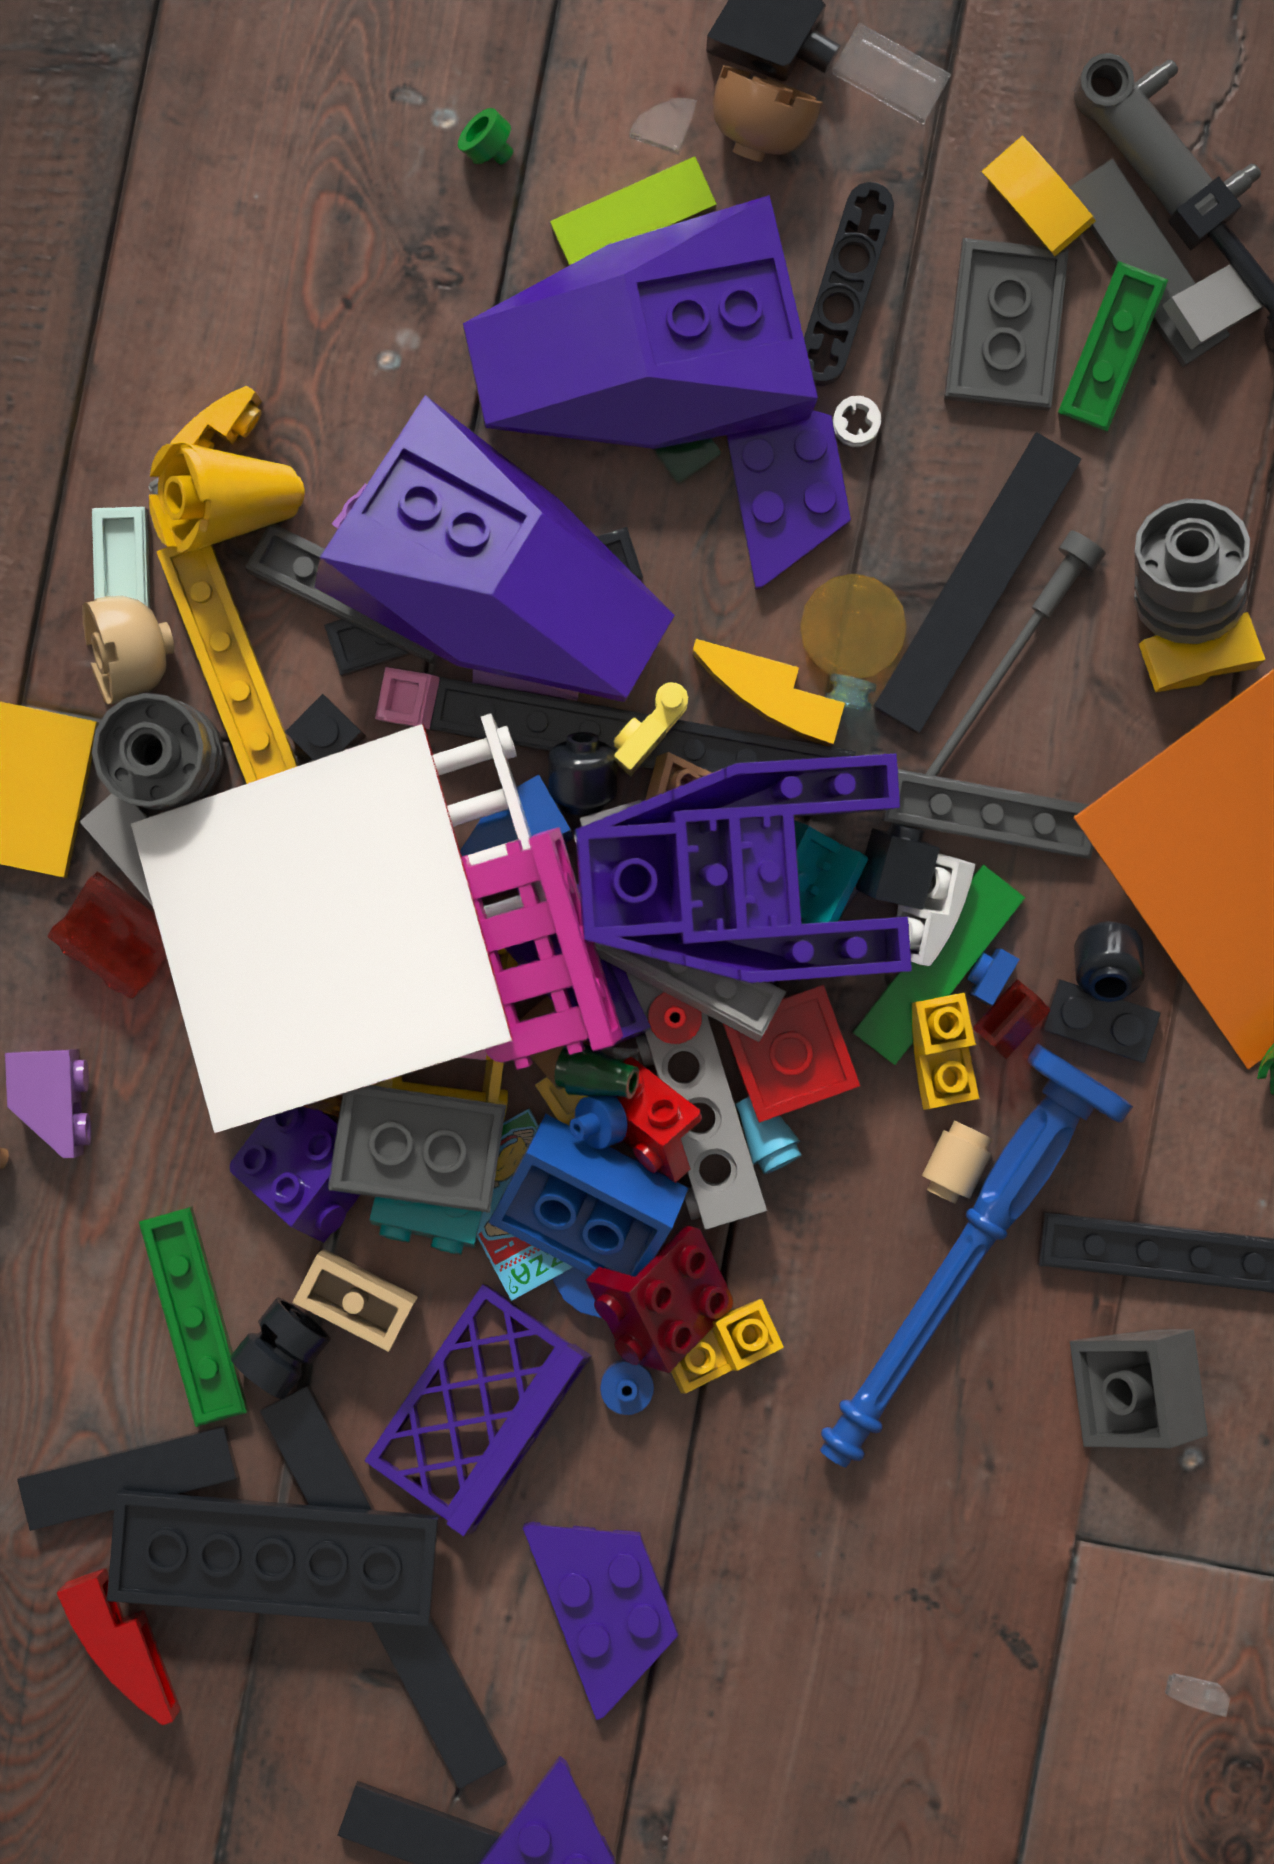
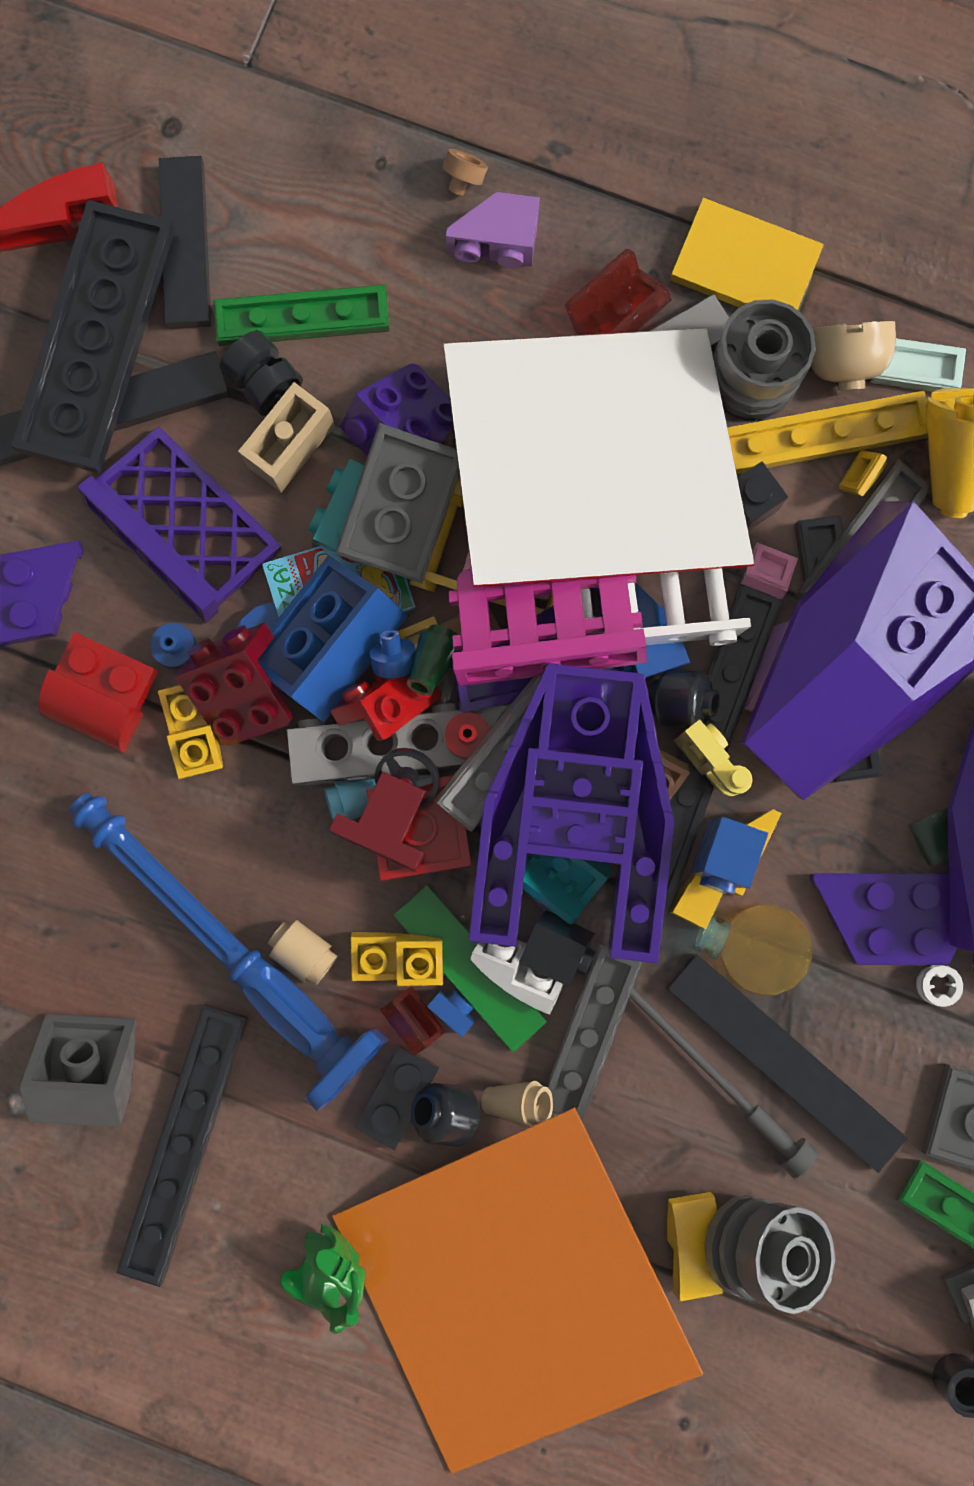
camera: 105 degrees right, 5 degrees down
(269, 607) = (863, 472): none -> yellow slope
(699, 1464) = (97, 692): none -> red brick
(761, 695) = (728, 855): none -> blue brick
(778, 1086) = (391, 810): none -> dark red piece
(1081, 880) = (519, 1103): none -> tan cone

